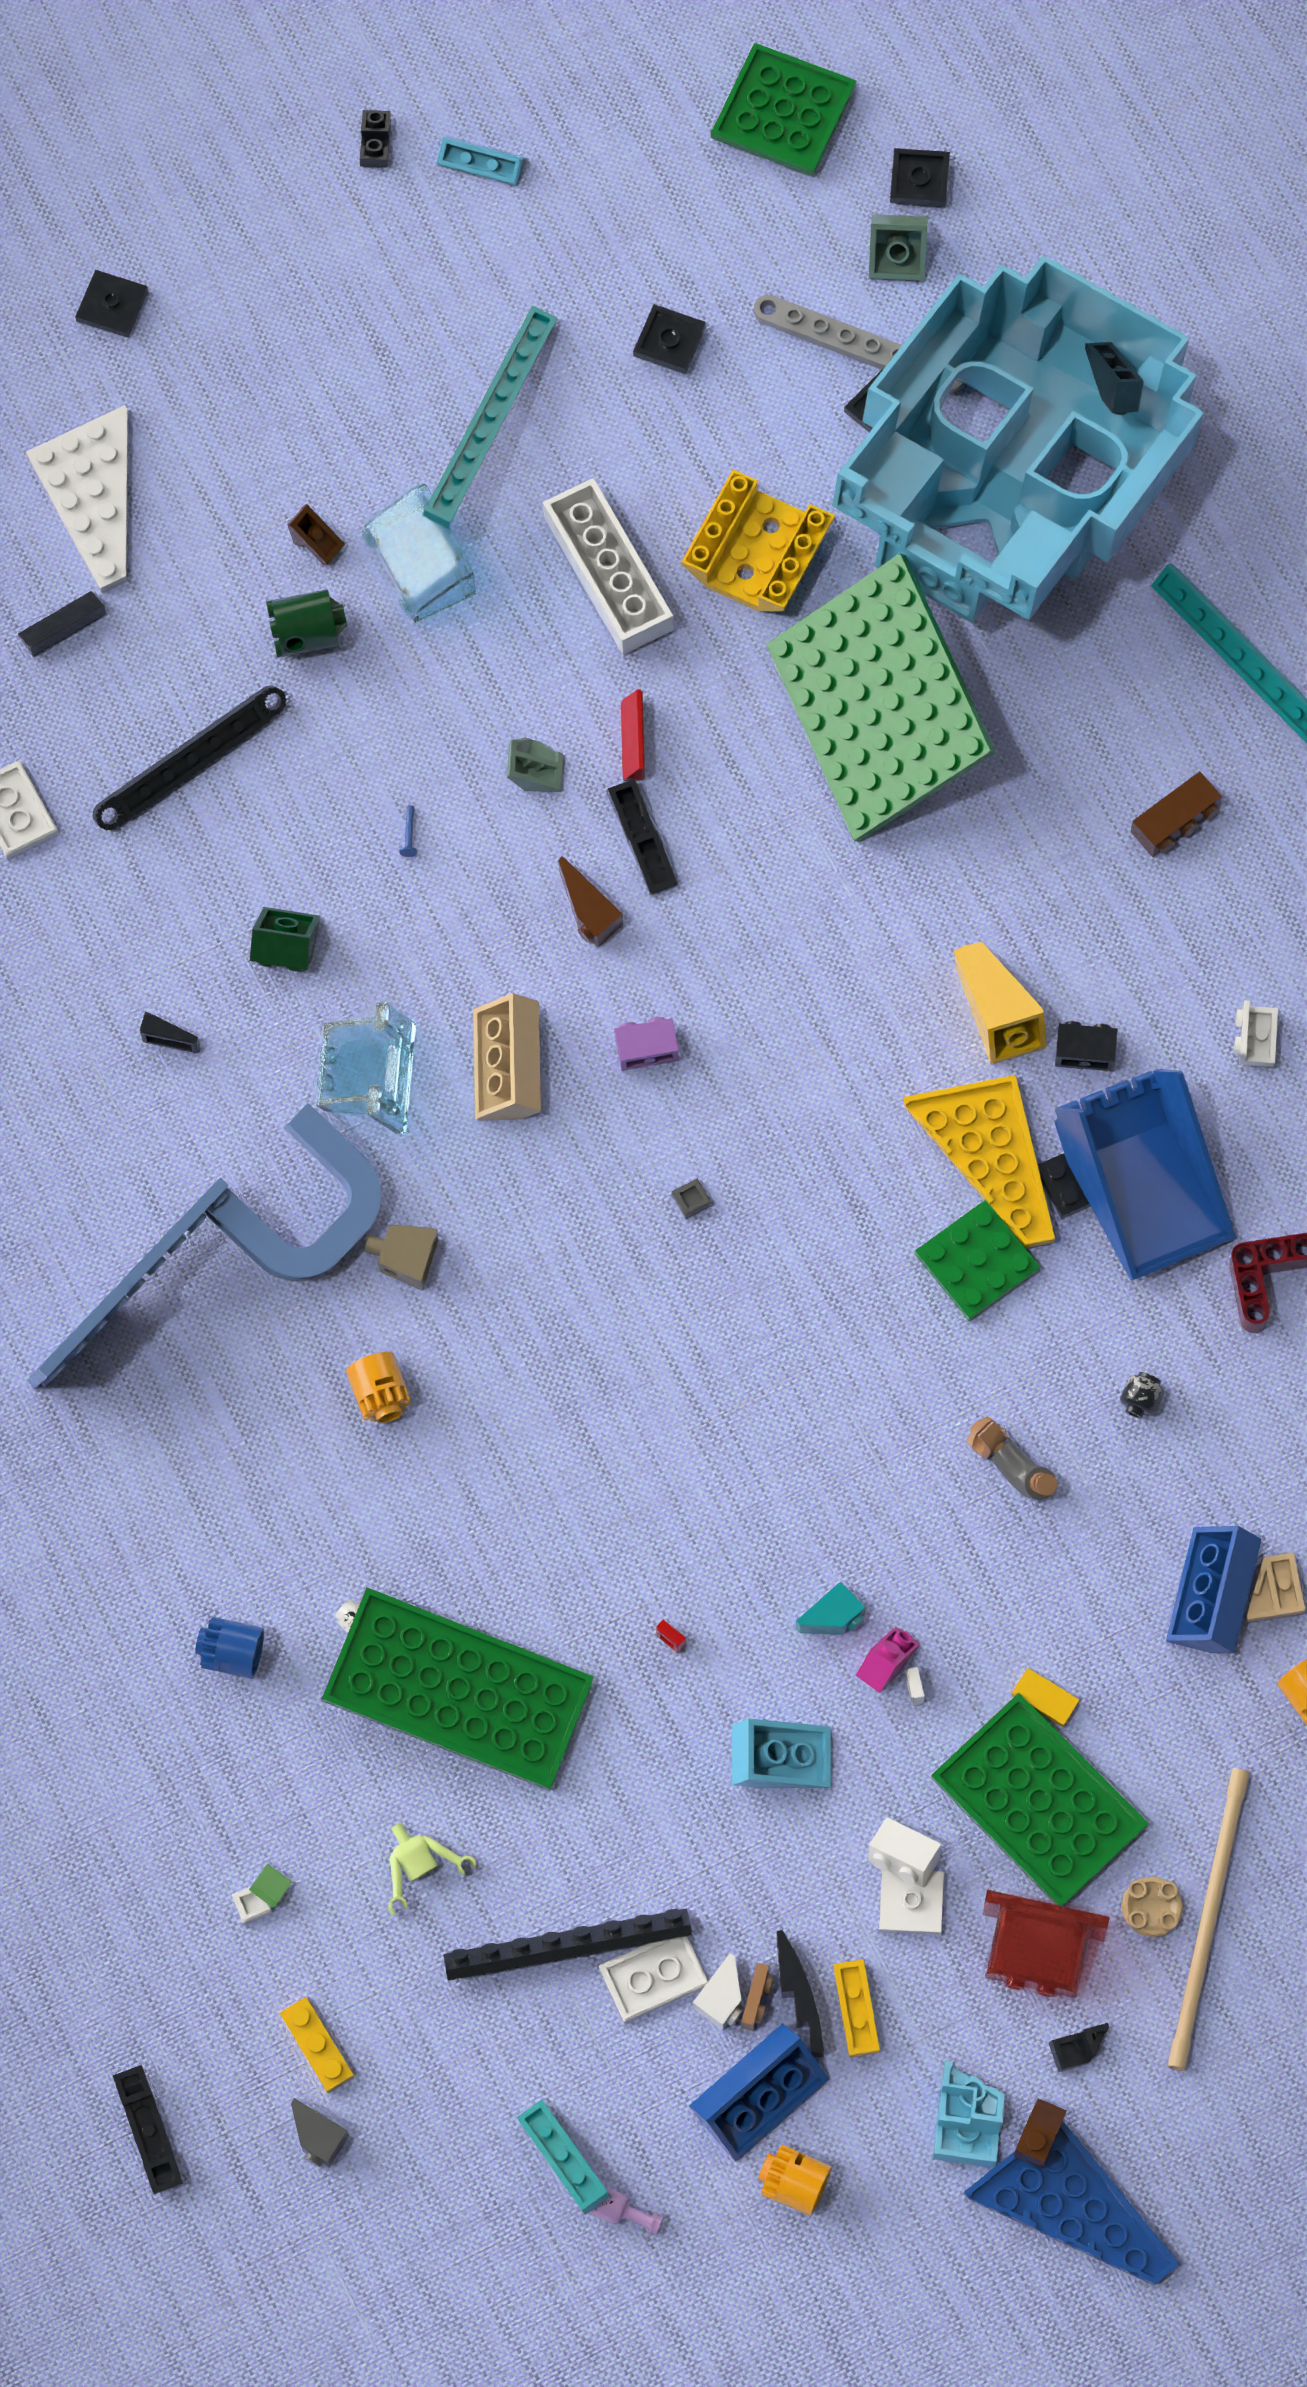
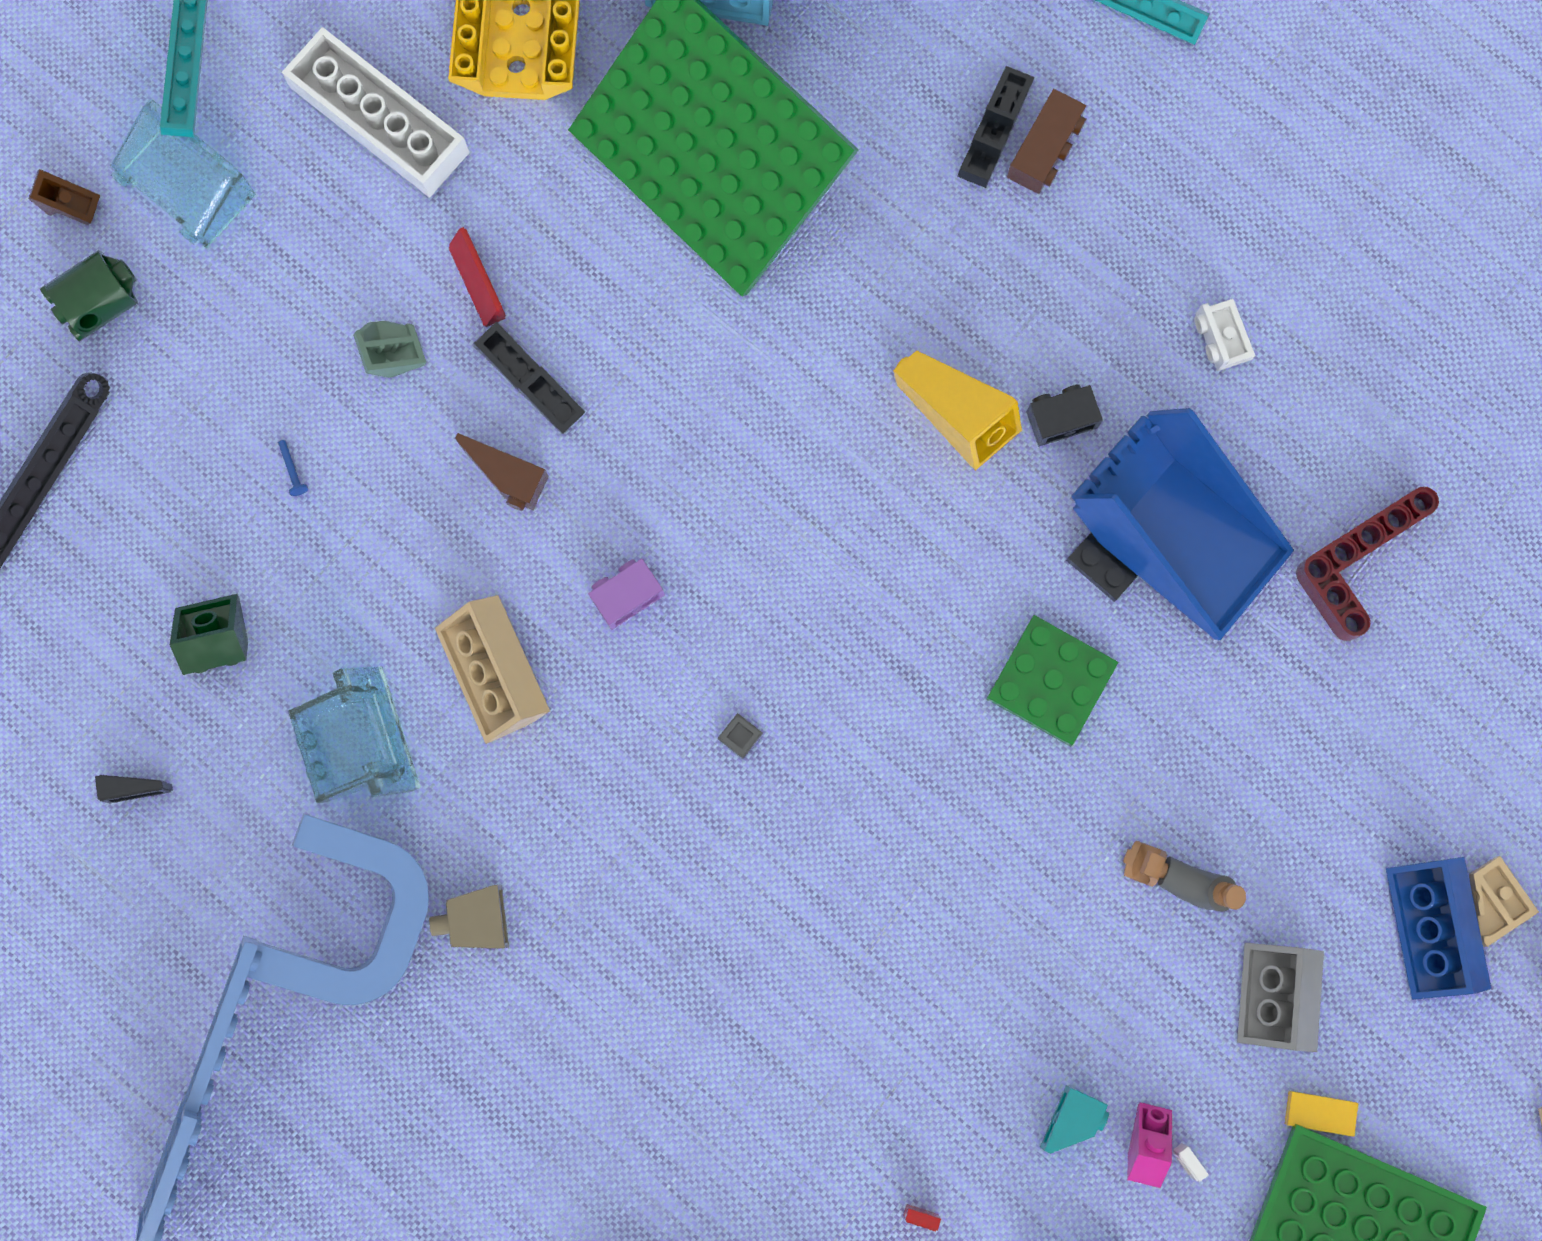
camera: 25 degrees left, 10 degrees up
(378, 1387) = (509, 1081): light orange gear -> none
(990, 1144) = (1013, 554): yellow wing -> none
(1053, 1588) = (1280, 997): none -> light grey slope
(1138, 785) = (995, 126): none -> black slope
(1142, 1395) = (1279, 755): black head -> none

